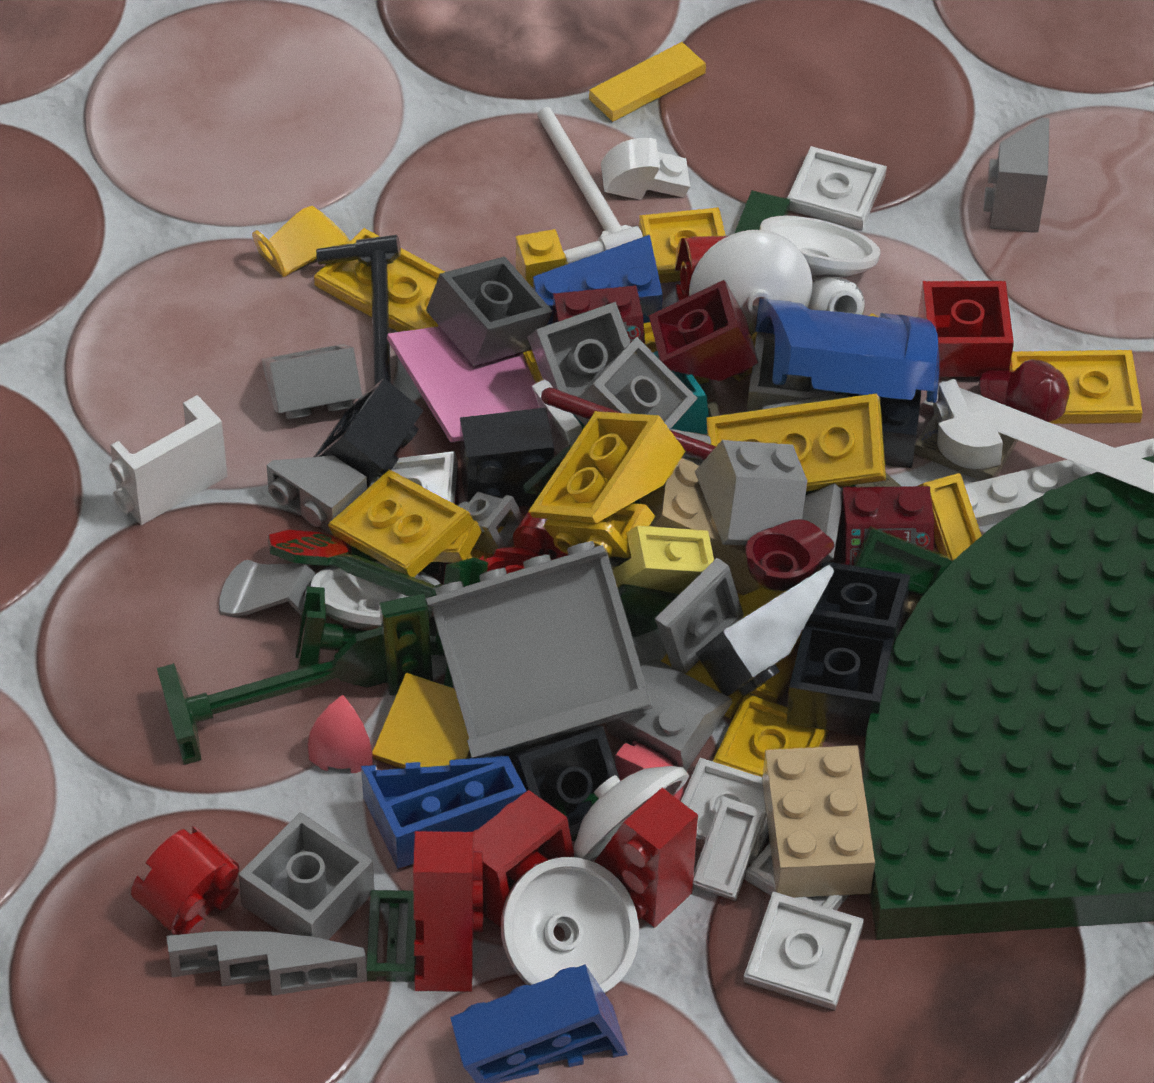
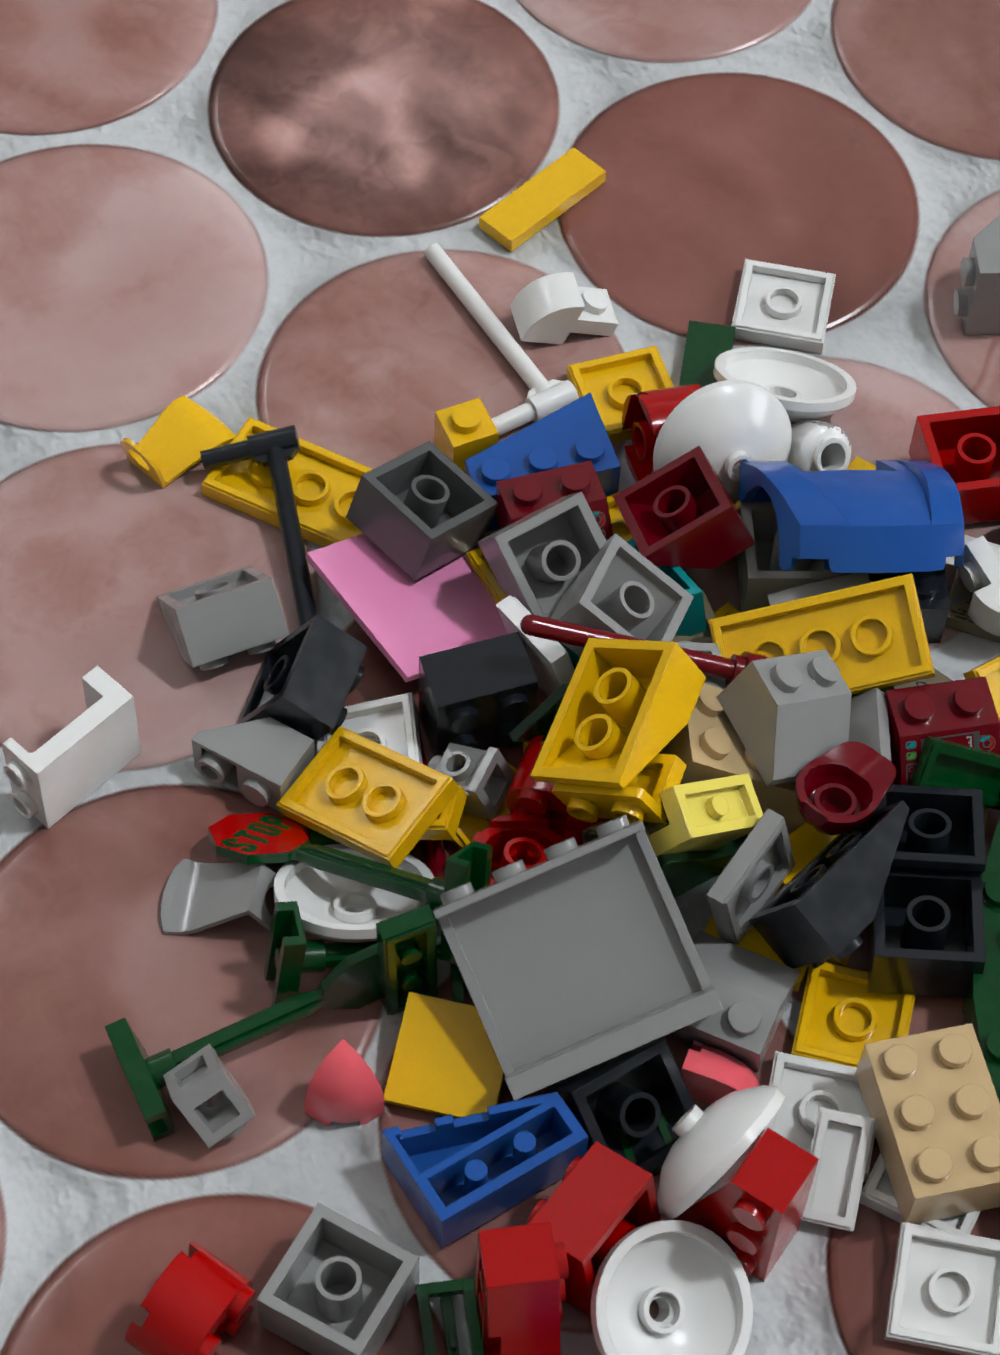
camera: 10 degrees left, 5 degrees up
(231, 750) = (209, 1096): none -> light grey brick

